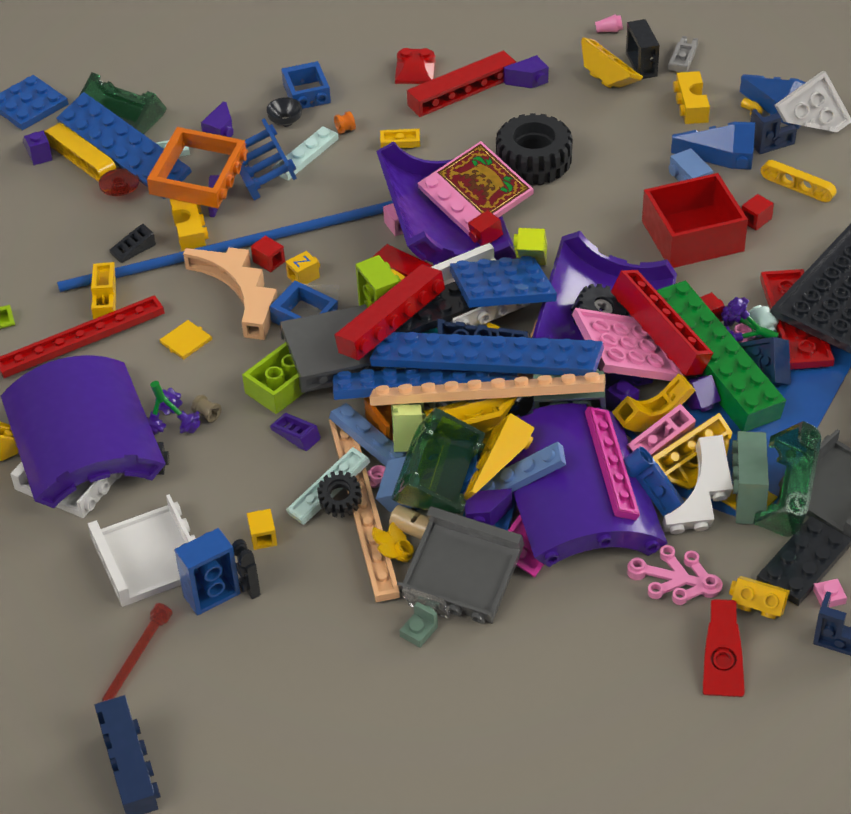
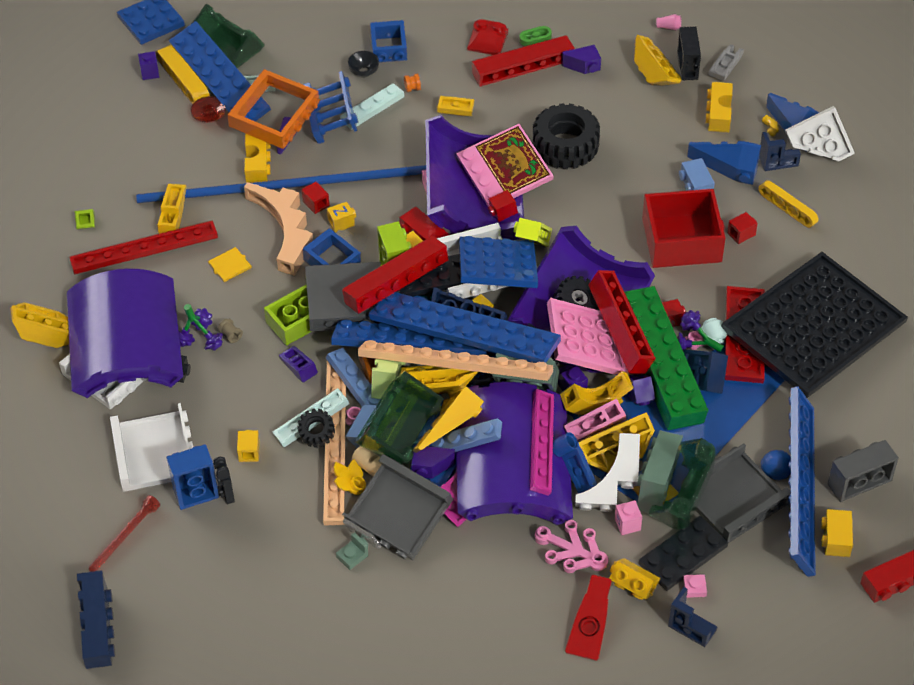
camera: 10 degrees right, 5 degrees up
(139, 239) = (216, 166): black slope -> none
(218, 121) = (304, 67): dark purple slope -> none
(467, 57) = (535, 35): none -> bright green plate
(731, 531) = (628, 517): none -> bright pink brick

